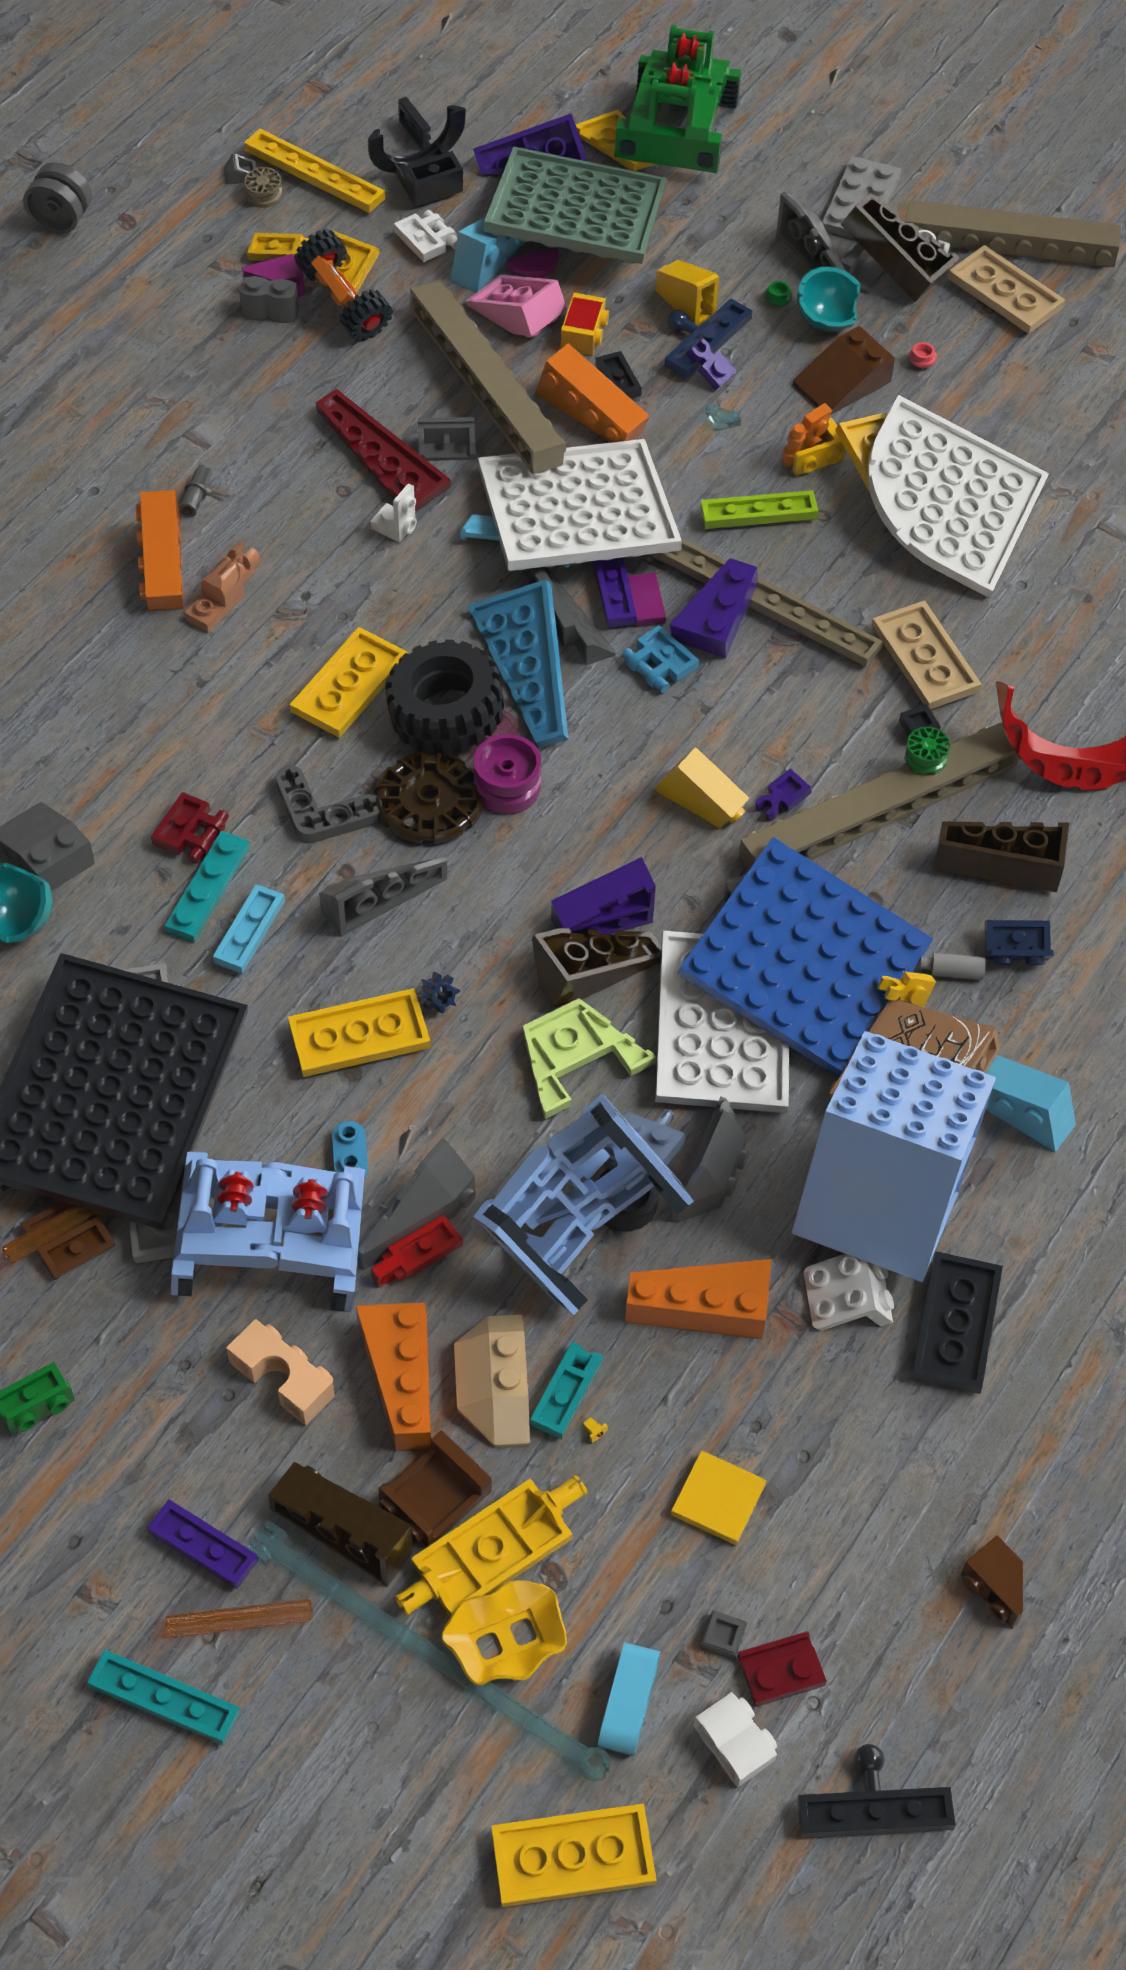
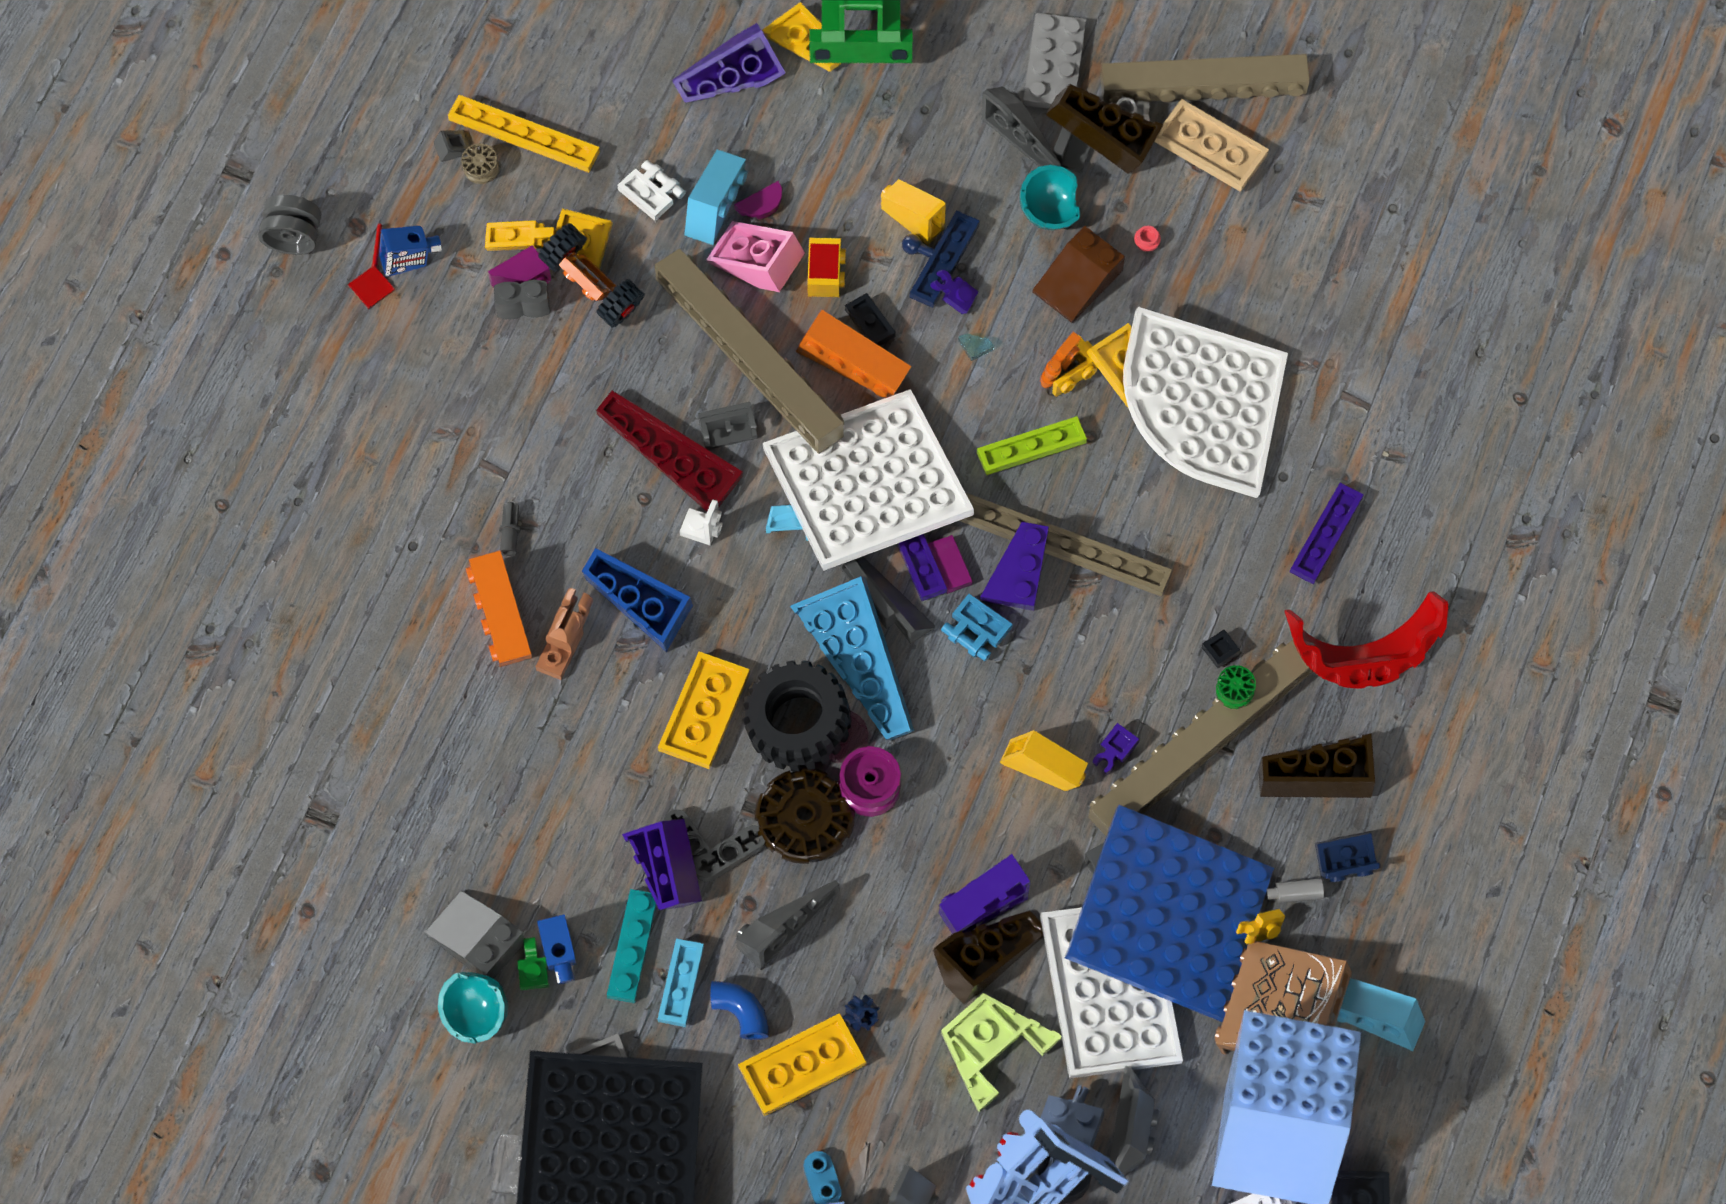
camera: 10 degrees left, 10 degrees up
(93, 889) = (532, 970): none -> green plate
(124, 864) = (556, 937): none -> blue torso
(127, 268) = (371, 284): none -> red piece
(166, 238) = (405, 249): none -> blue torso
(181, 823) = (593, 889): dark red plate -> none
(266, 807) = (667, 862): none -> dark purple wedge
(310, 961) = (744, 1006): none -> blue cylinder
(311, 567) = (641, 598): none -> blue wedge
(414, 123) = (606, 57): black tile -> none
(430, 172) = (632, 113): black piece -> none
(575, 205) = (789, 135): sand green plate -> none
(778, 293) = (999, 193): green plate -> none
(926, 655) = (1213, 574): tan plate -> none
(1057, 639) = (1326, 533): none -> dark purple plate

